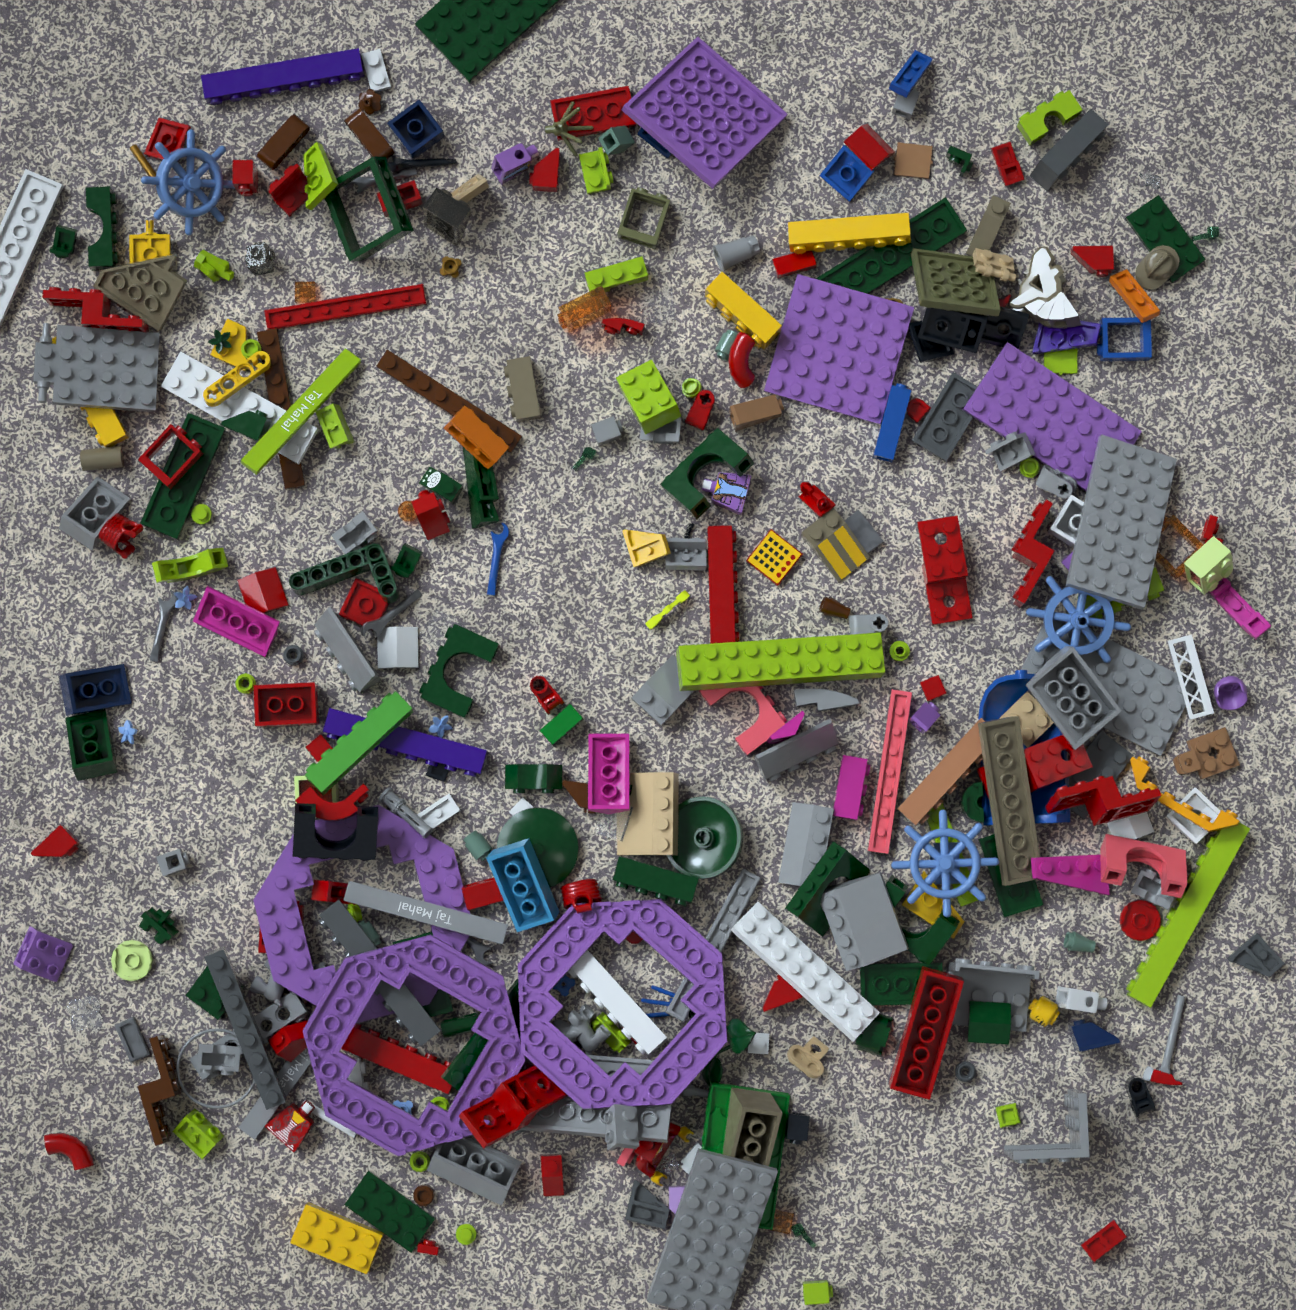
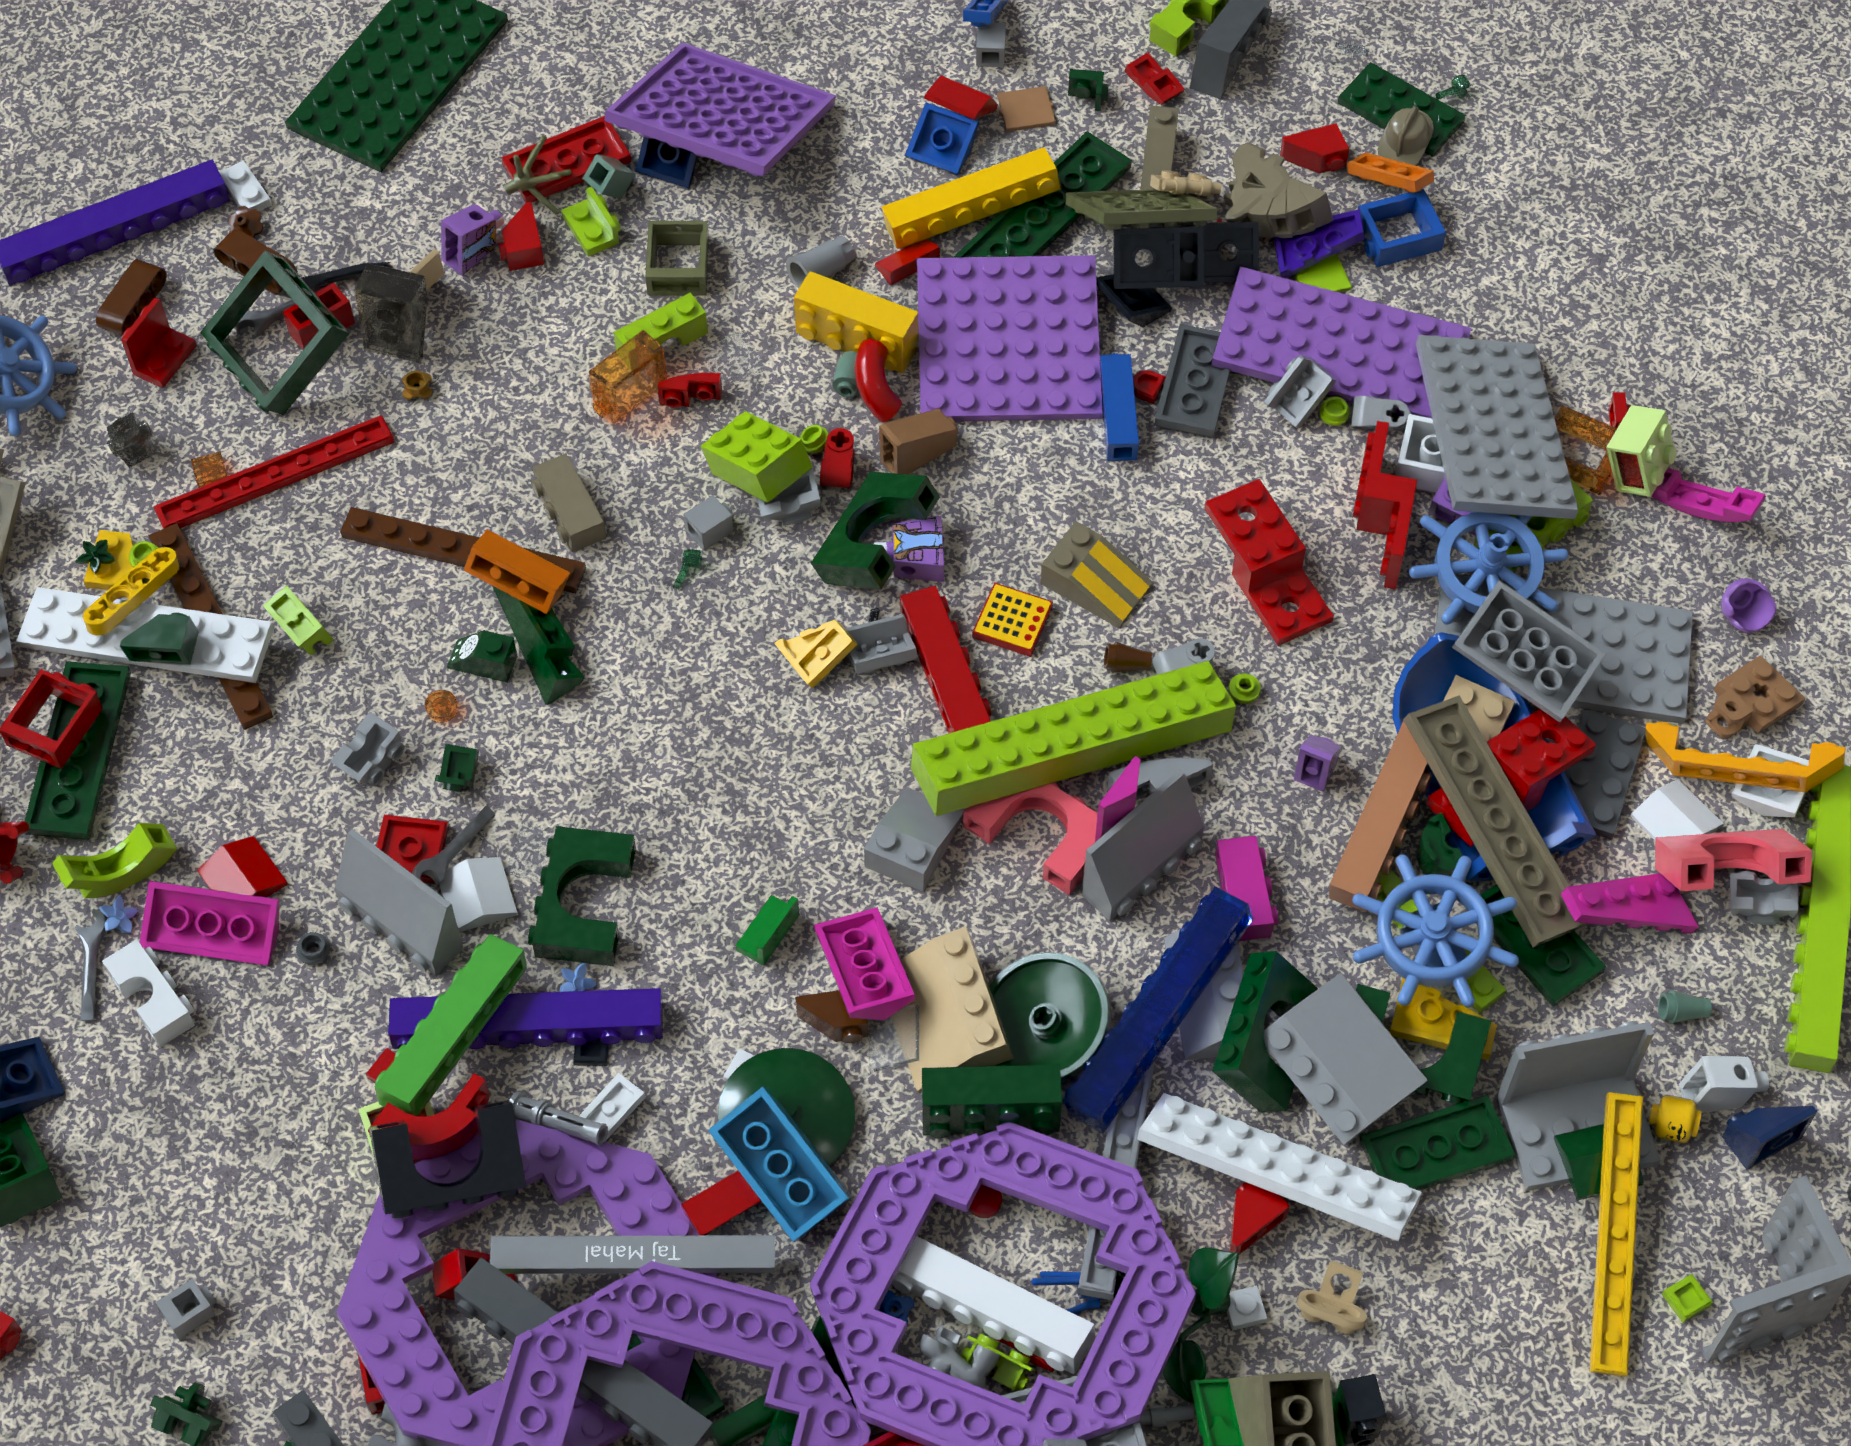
camera: 20 degrees left, 25 degrees down
(128, 732) = (67, 1133): light blue plant -> none
(199, 672) = (134, 971): none -> white arch
(201, 514) = (118, 793): lime plate -> none
(213, 266) = (60, 467): lime rock -> none
(239, 681) = (245, 1001): lime plate -> none
(245, 177) = (84, 344): red brick -> none
(286, 704) = (319, 1016): red brick -> none
(300, 411) = (238, 606): lime tile -> none
(319, 175) = (192, 317): lime wing -> none
(348, 571) = (366, 800): dark green beam -> none
(416, 129) = (320, 232): dark blue brick -> none
(430, 514) = (478, 691): red brick -> none
(477, 845) = (688, 1138): sand green brick -> none
(498, 542) = (591, 709): blue piece -> none
(533, 777) = (747, 1011): dark green brick -> none
(546, 695) = (732, 894): red piece -> none
(579, 892) = (880, 1152): red piece -> none
(655, 620) = (865, 744): neon yellow piece -> none
(768, 858) = (1157, 1009): none -> clear blue brick
(815, 499) = (1045, 522): red hinge -> none
(864, 531) = (1139, 553): flat silver tile -> none
(875, 1035) = (1426, 1240): dark green cylinder -> none
(889, 771) = (1296, 854): coral plate -> none
(926, 1032) = (1507, 1199): red brick -> none
(932, 688) = (1313, 721): red tile -> none
(972, 1071) = (1582, 1243): dark grey plate -> none
(980, 1070) = (1616, 1235): none -> yellow tile
(1103, 800) = (1632, 781): red bracket -> none
(1133, 918) = (1760, 961): red tile -> none
(1197, 674) = (1683, 595): white fence -> none

